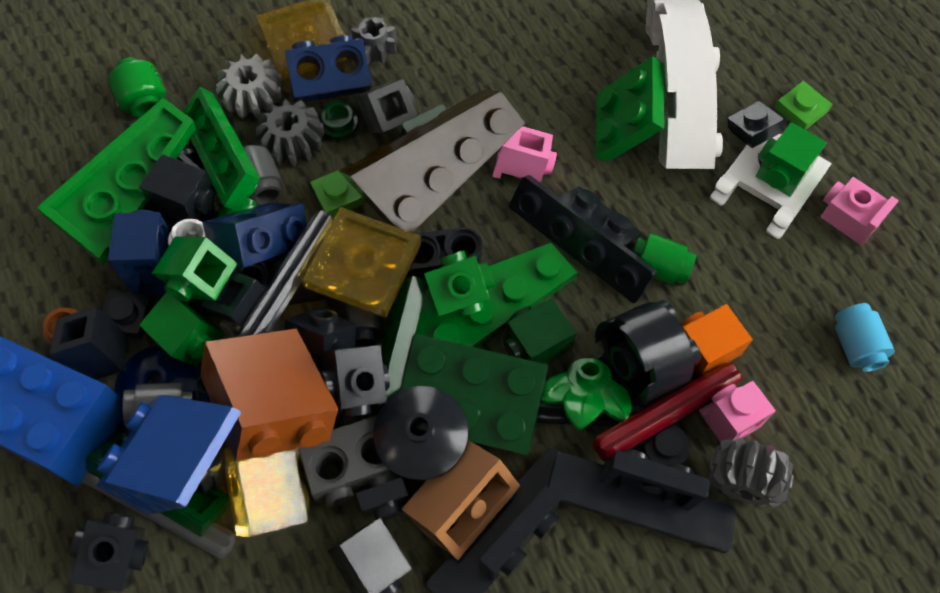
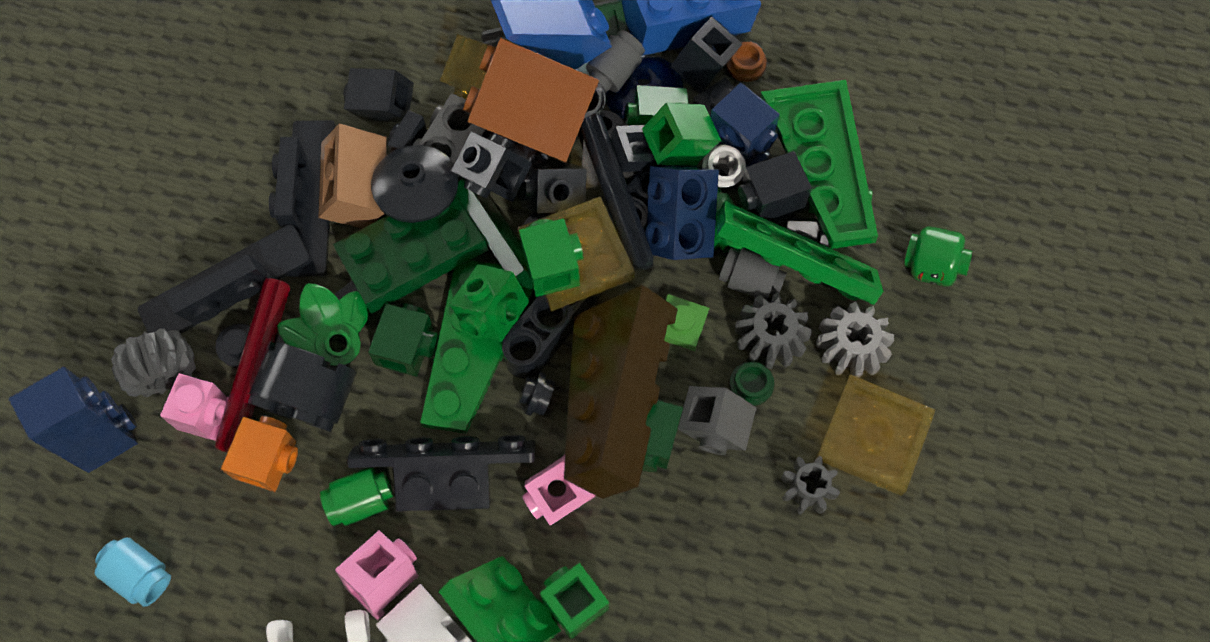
camera: 135 degrees right, 5 degrees up
(330, 81) = (795, 402): dark blue brick -> none
(389, 249) = (551, 256): none -> green brick
(482, 219) = (536, 394): none -> black plate
(578, 85) = (573, 599): none -> green brick
(697, 189) = (378, 572): none -> bright pink brick
(854, 447) = (74, 419): none -> dark blue brick

